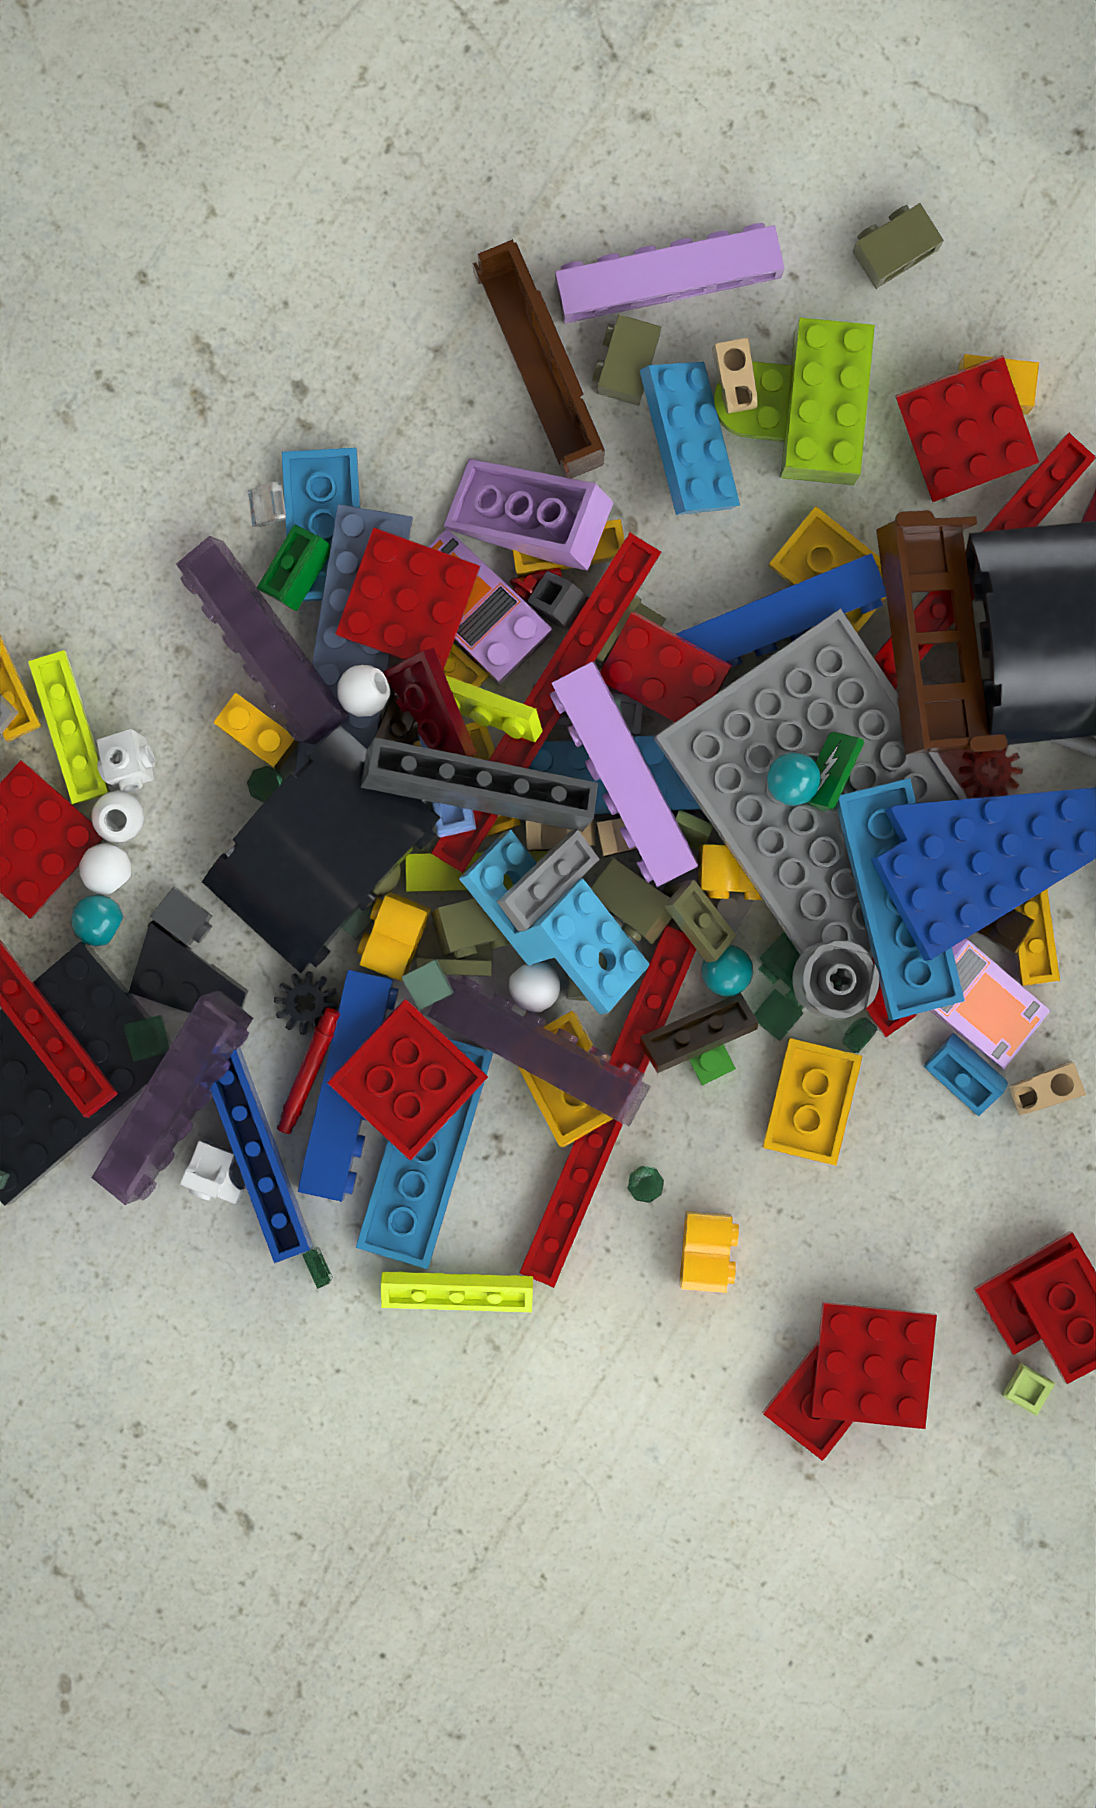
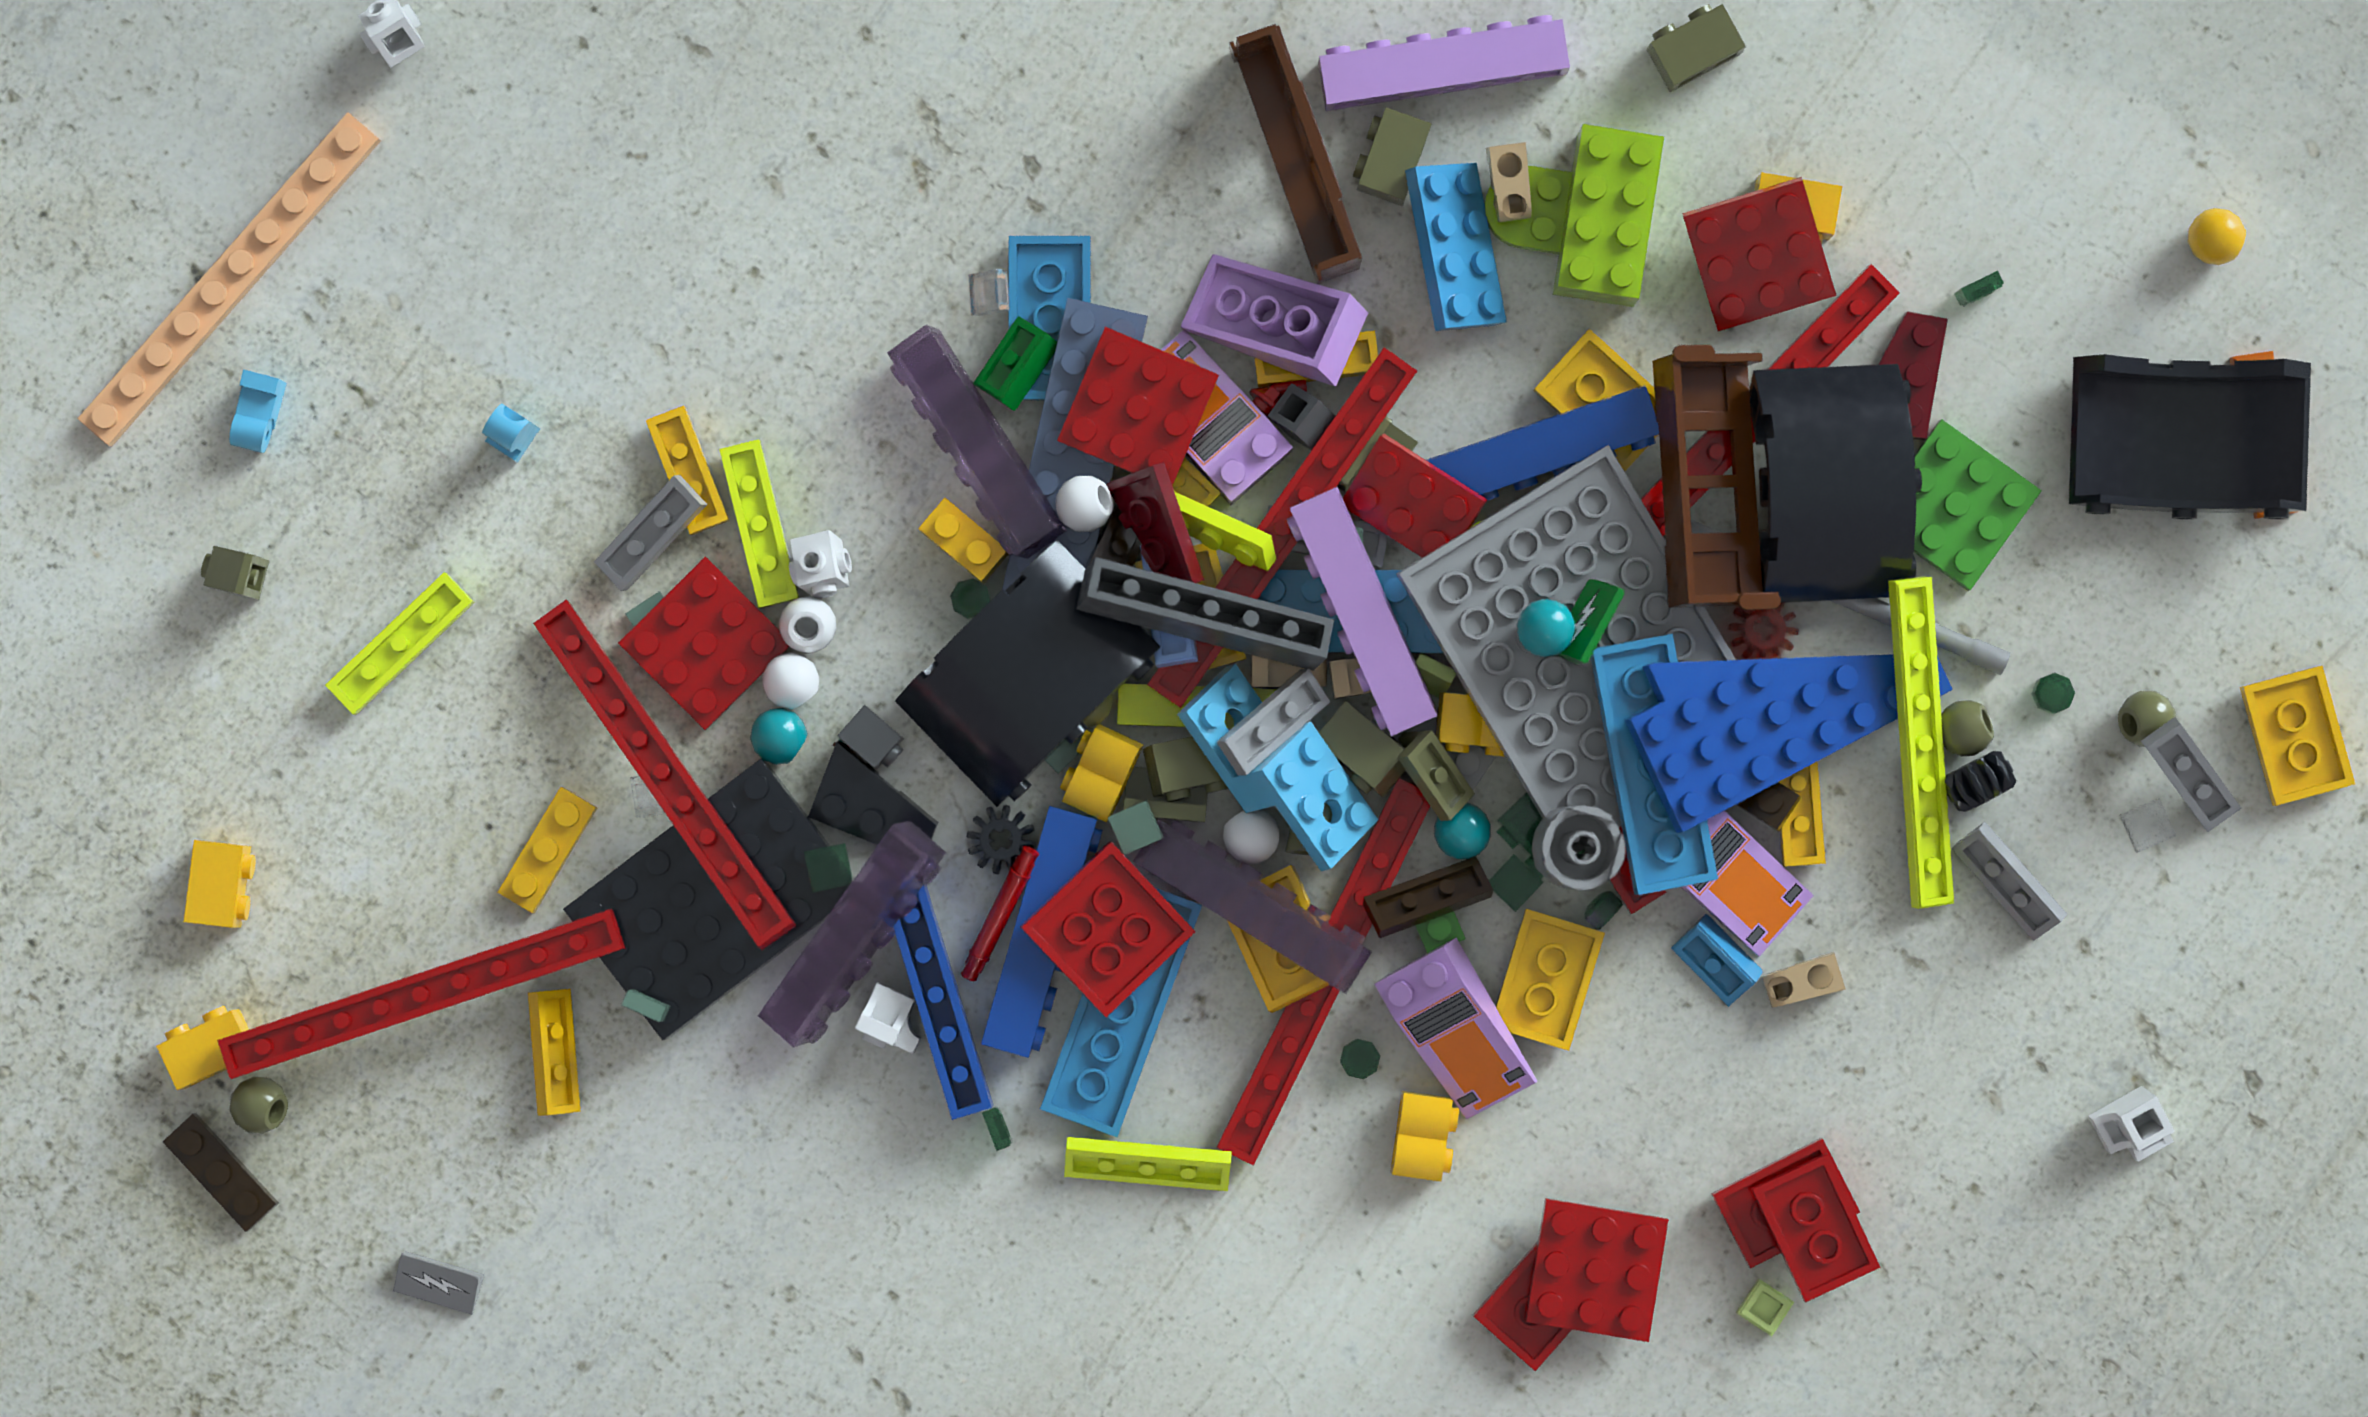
camera: 10 degrees right, 0 degrees up
(732, 1151) = (1456, 1028): none -> slope

